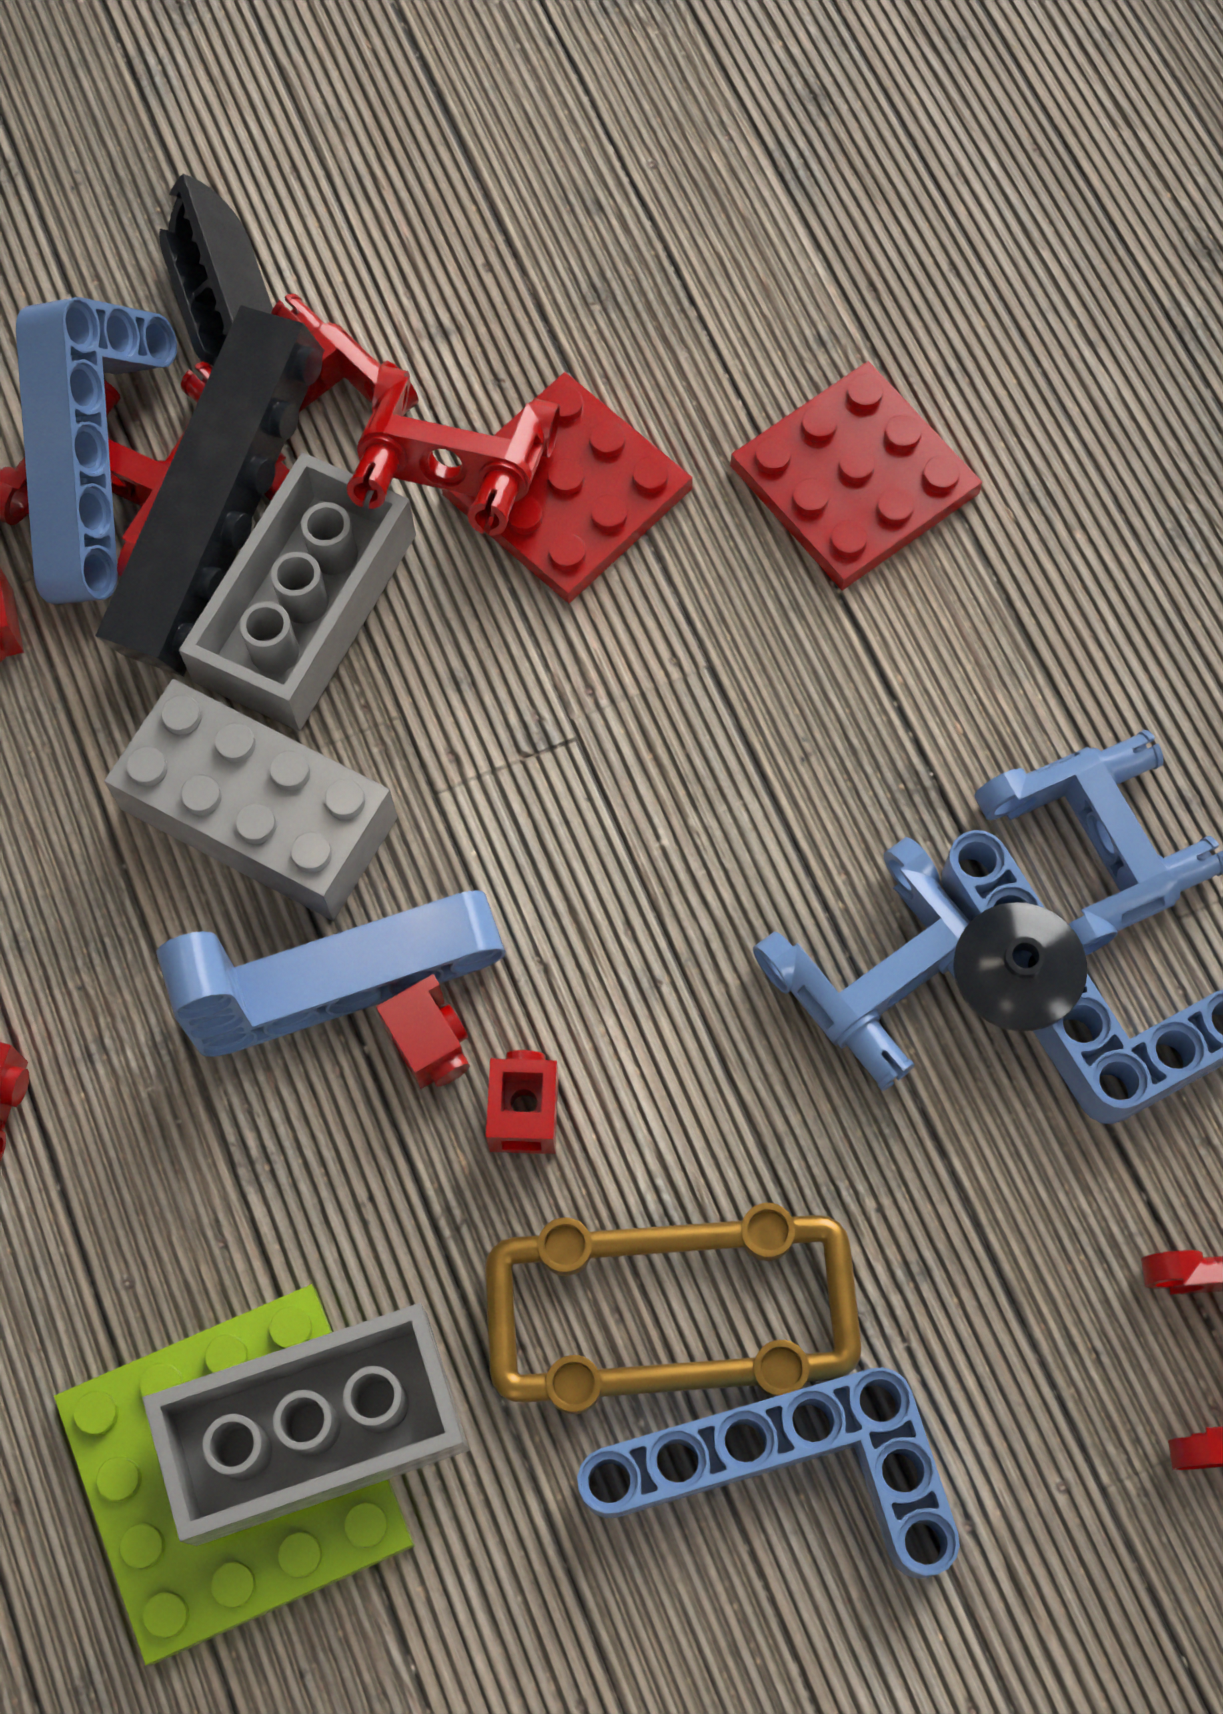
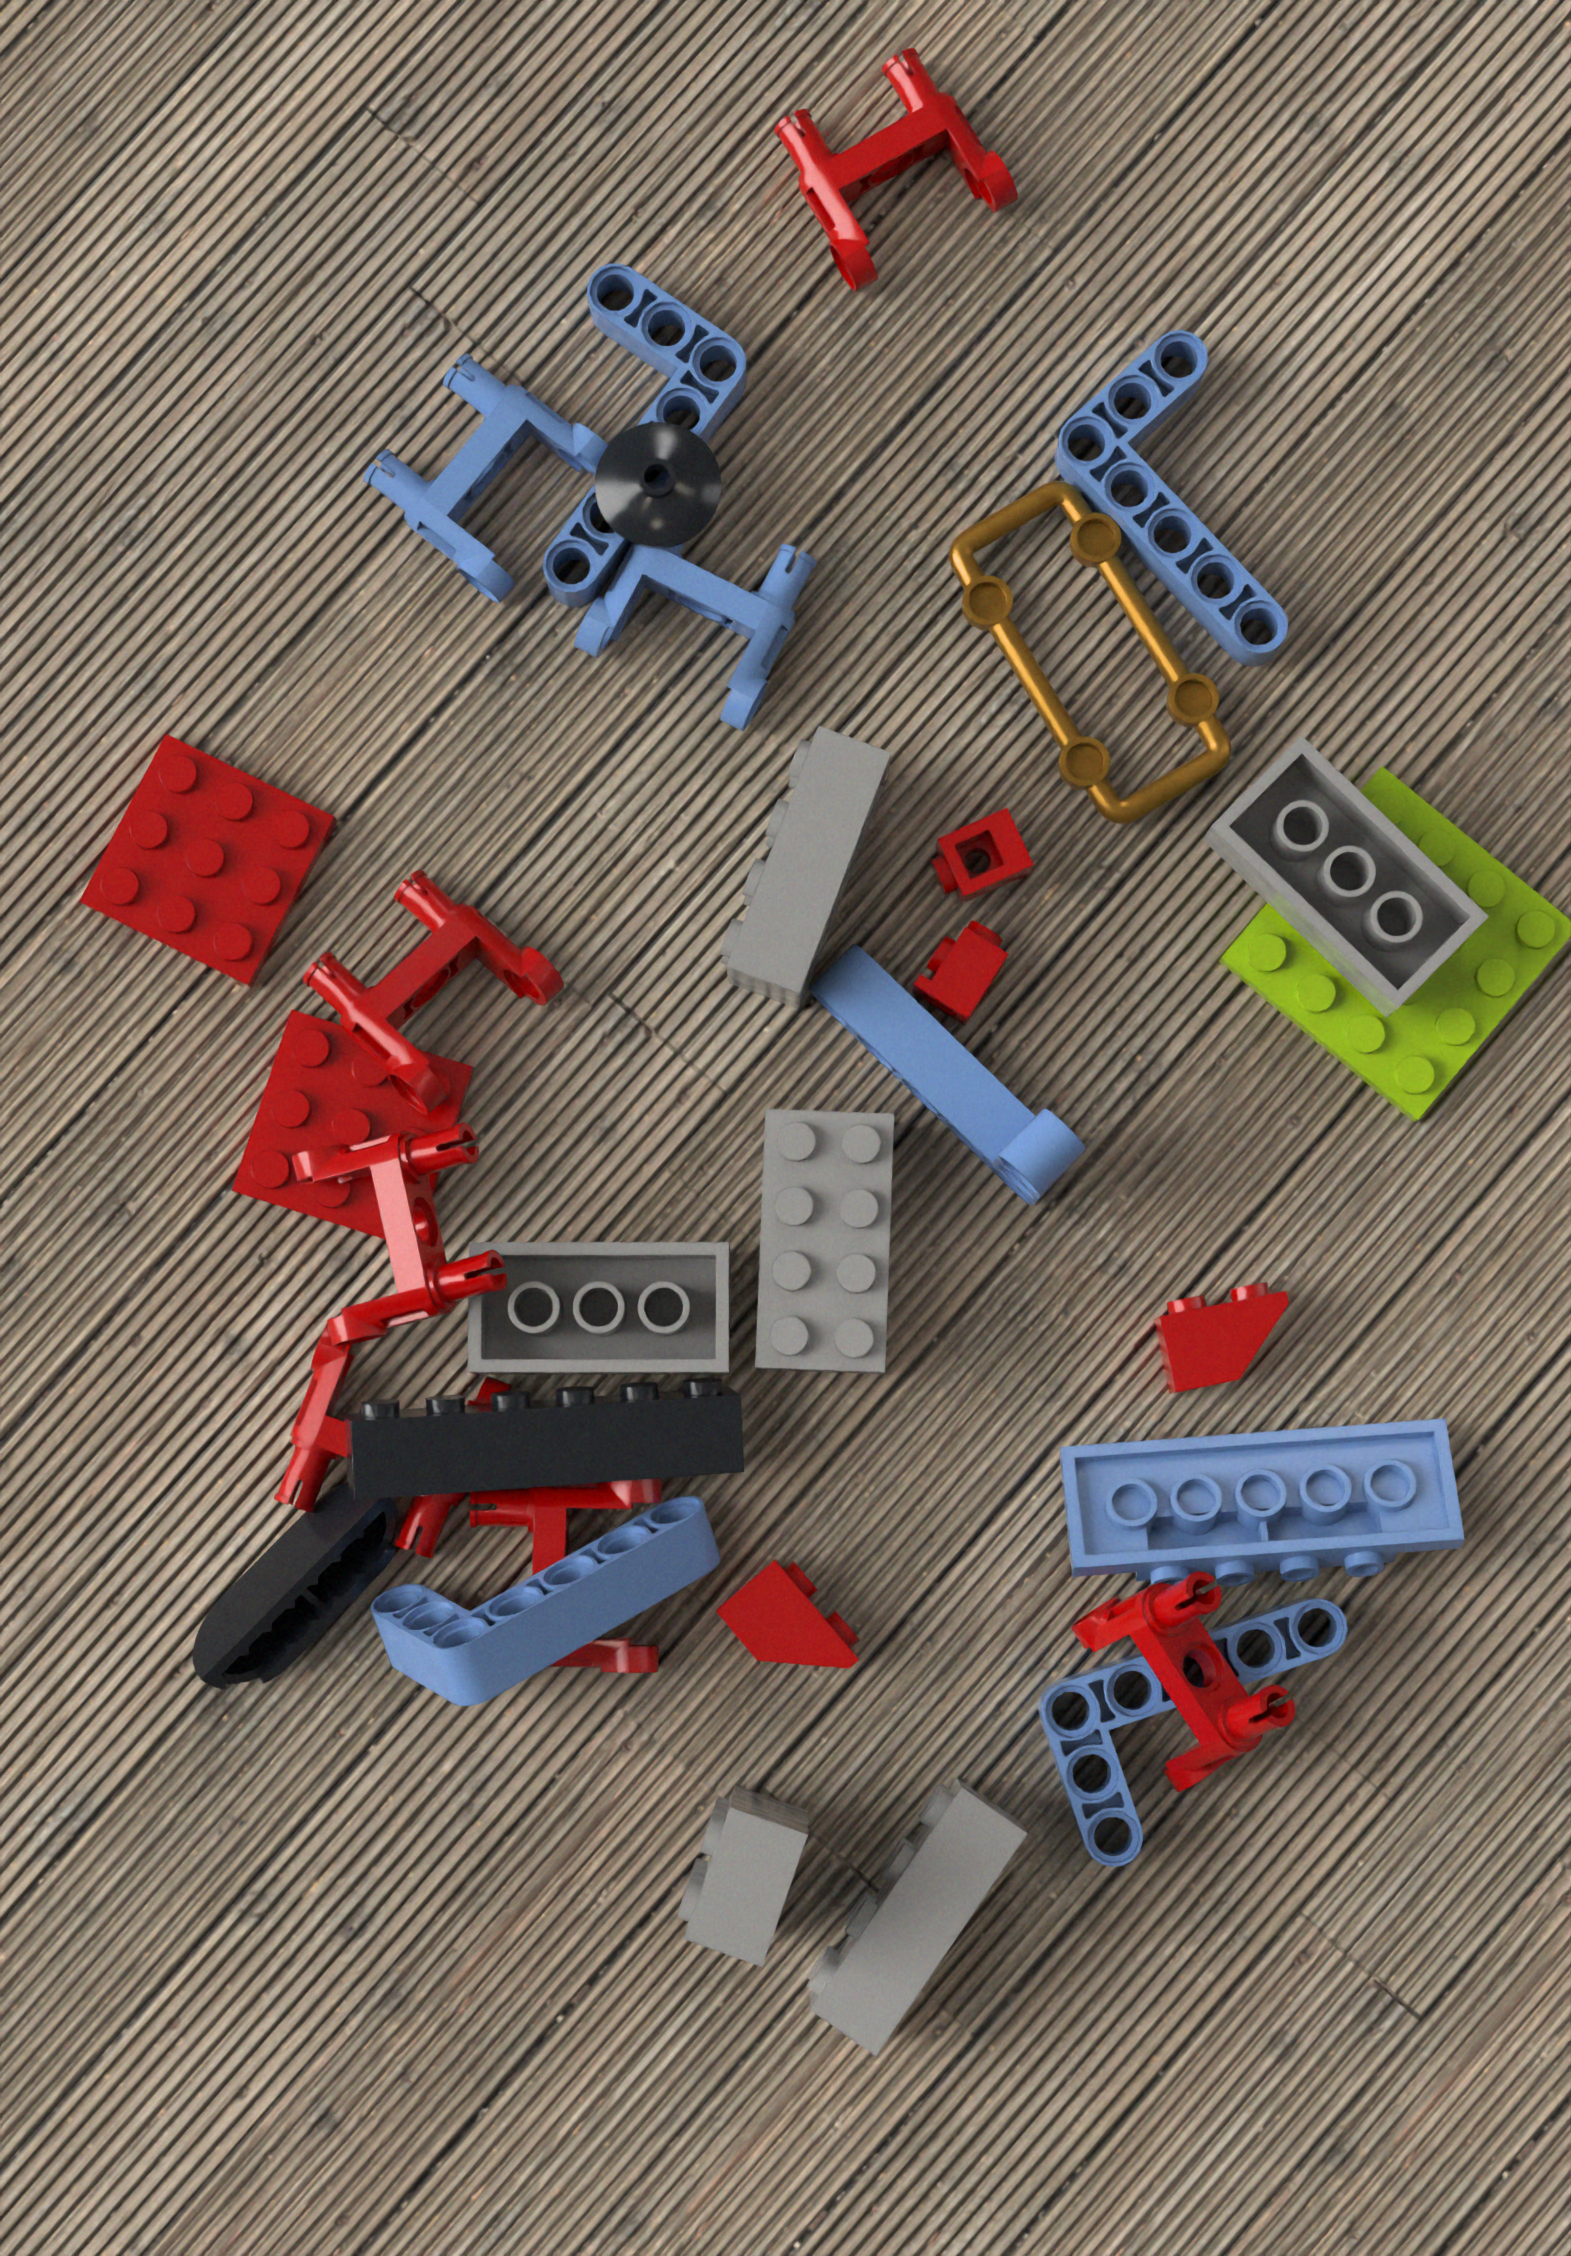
camera: 115 degrees left, 15 degrees up
(590, 928) = (808, 867): none -> light grey brick
(649, 526) = (457, 938): none -> red connector

